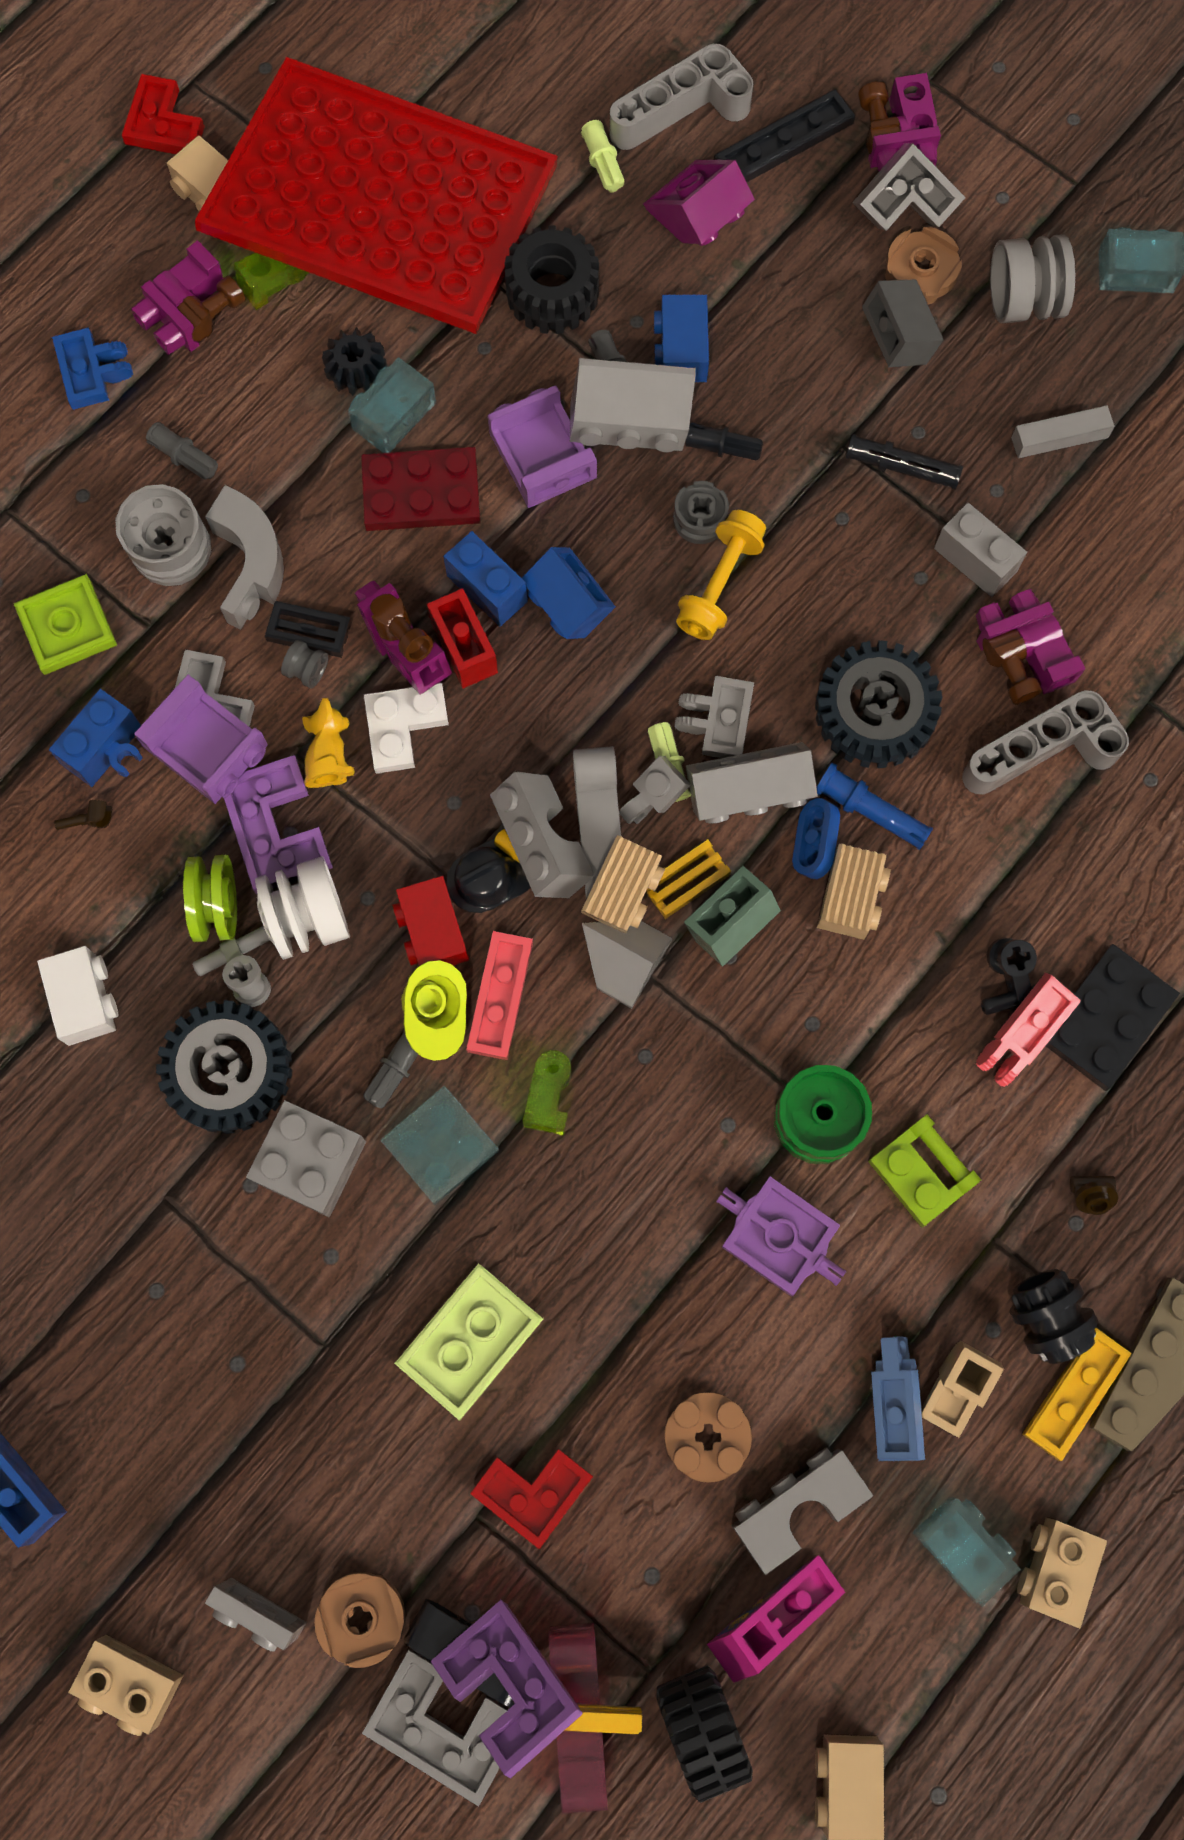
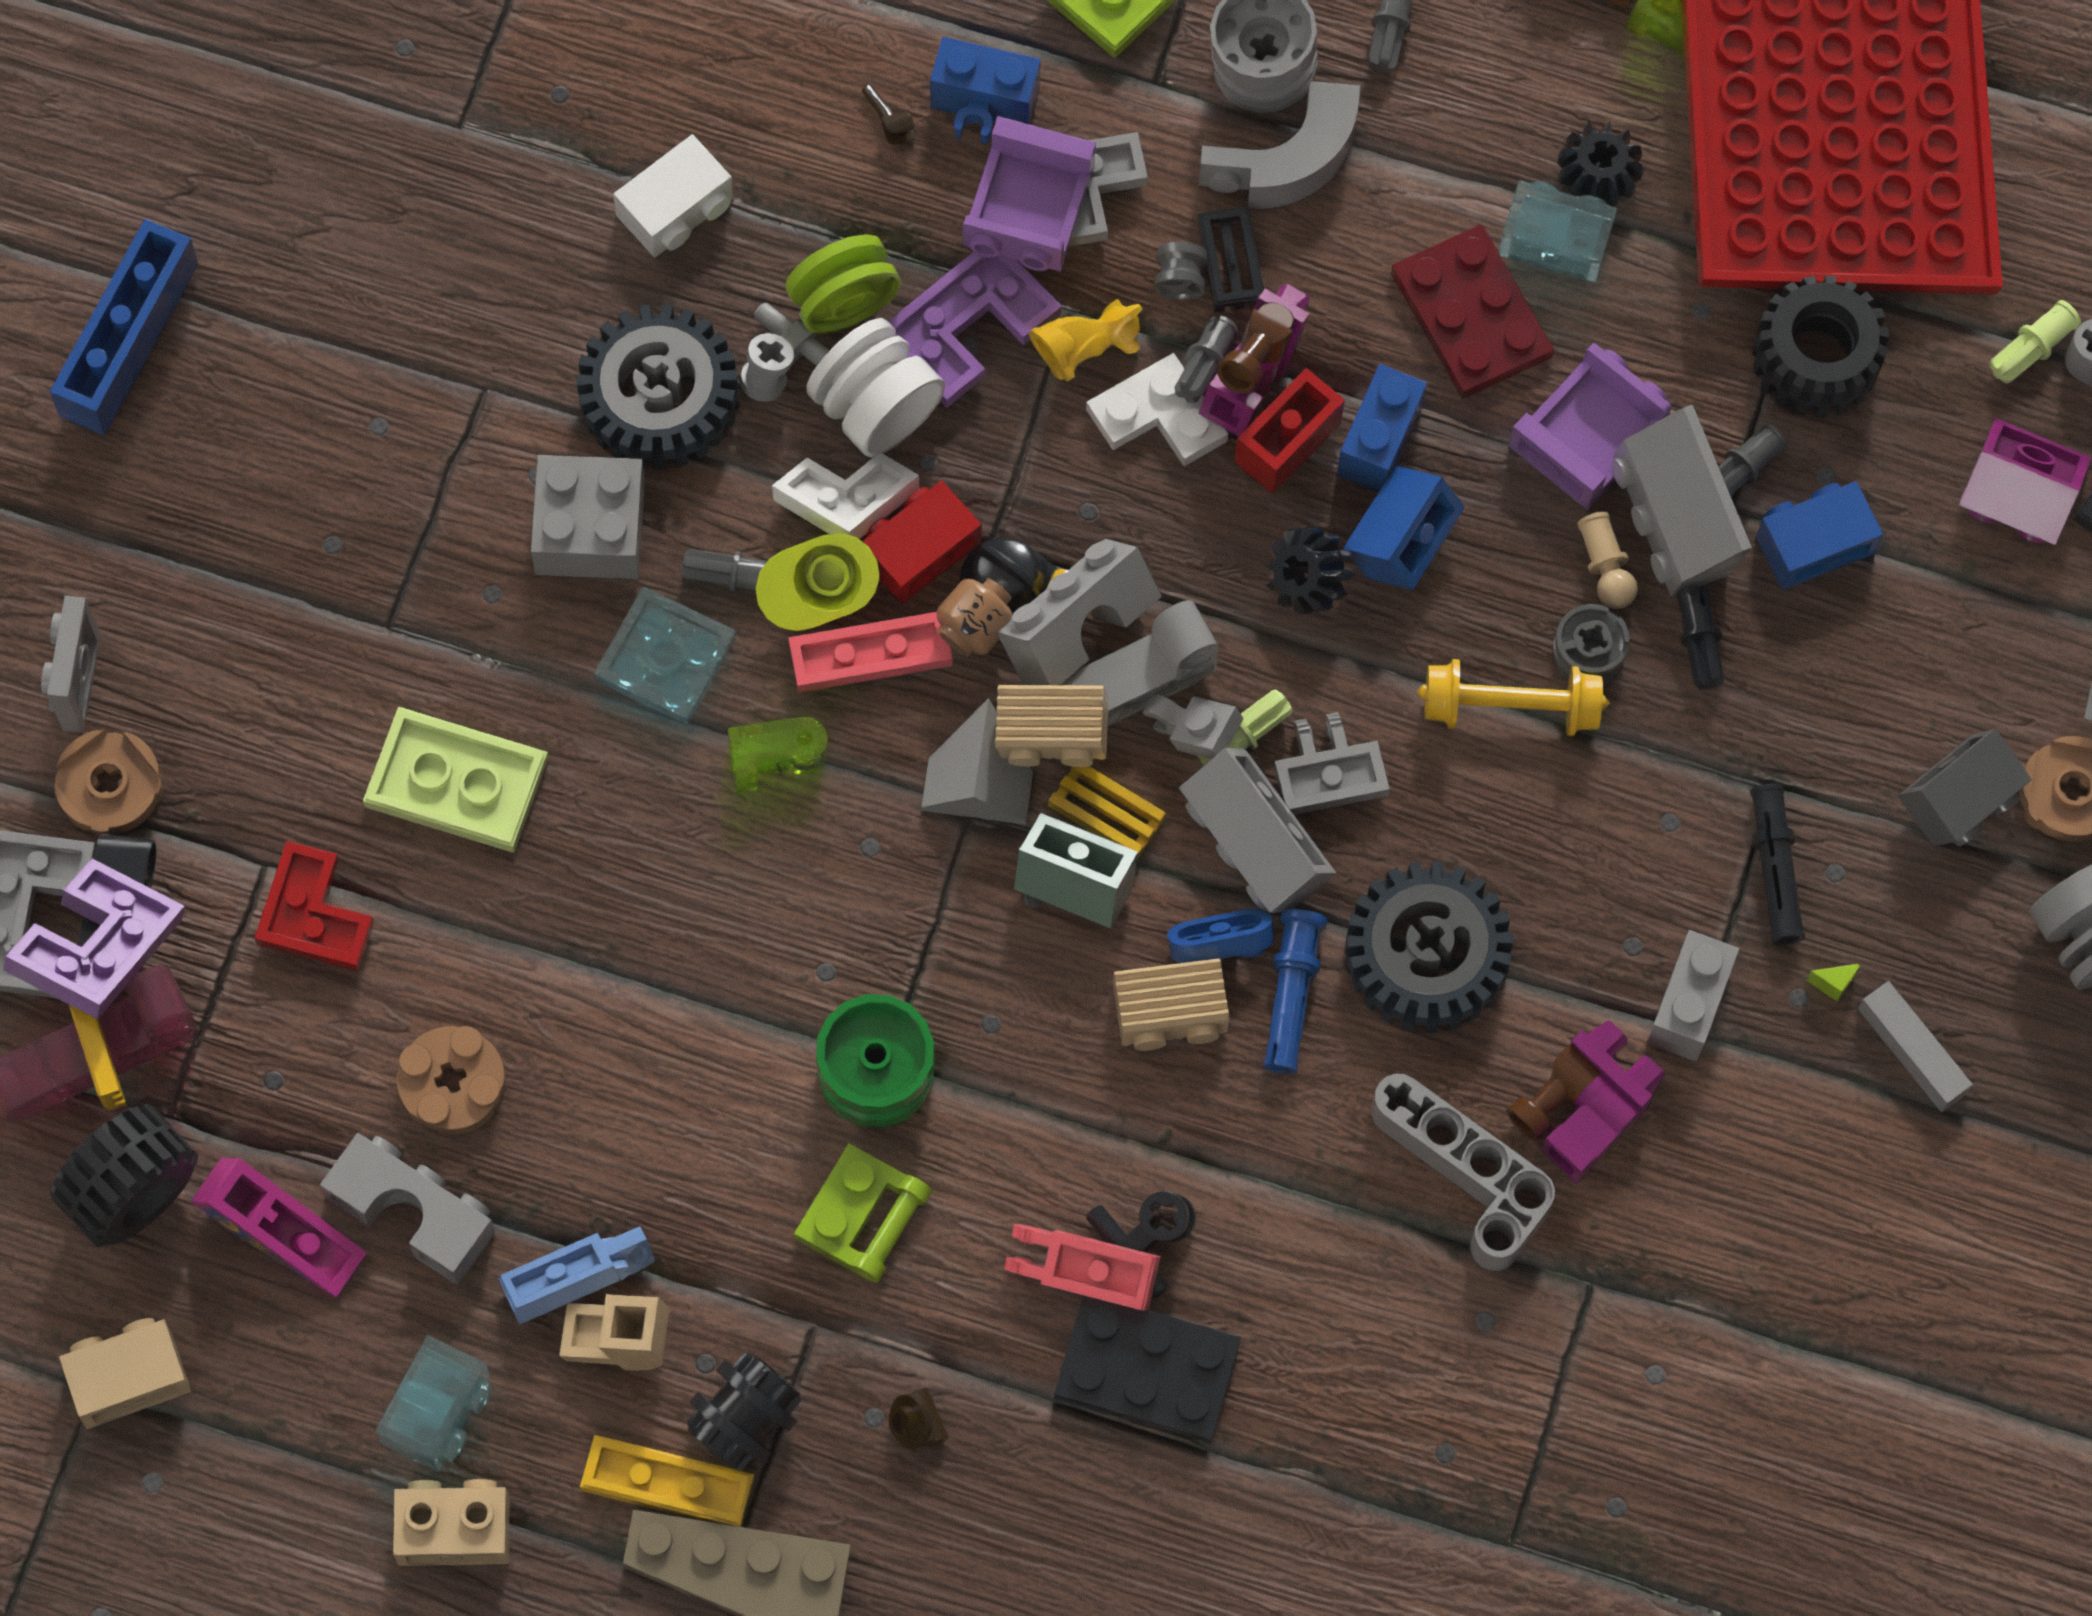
camera: 65 degrees right, 5 degrees down
(381, 673) = (1205, 357): none -> dark grey axle
(382, 965) = (846, 504): none -> white plate
(513, 908) = (974, 616): none -> medium nougat head
(582, 676) = (1297, 586): none -> black gear
(665, 478) = (1616, 586): none -> tan pin
(781, 1236) = (714, 1073): medium lavender plate -> none
(999, 460) = (1833, 980): none -> lime piece

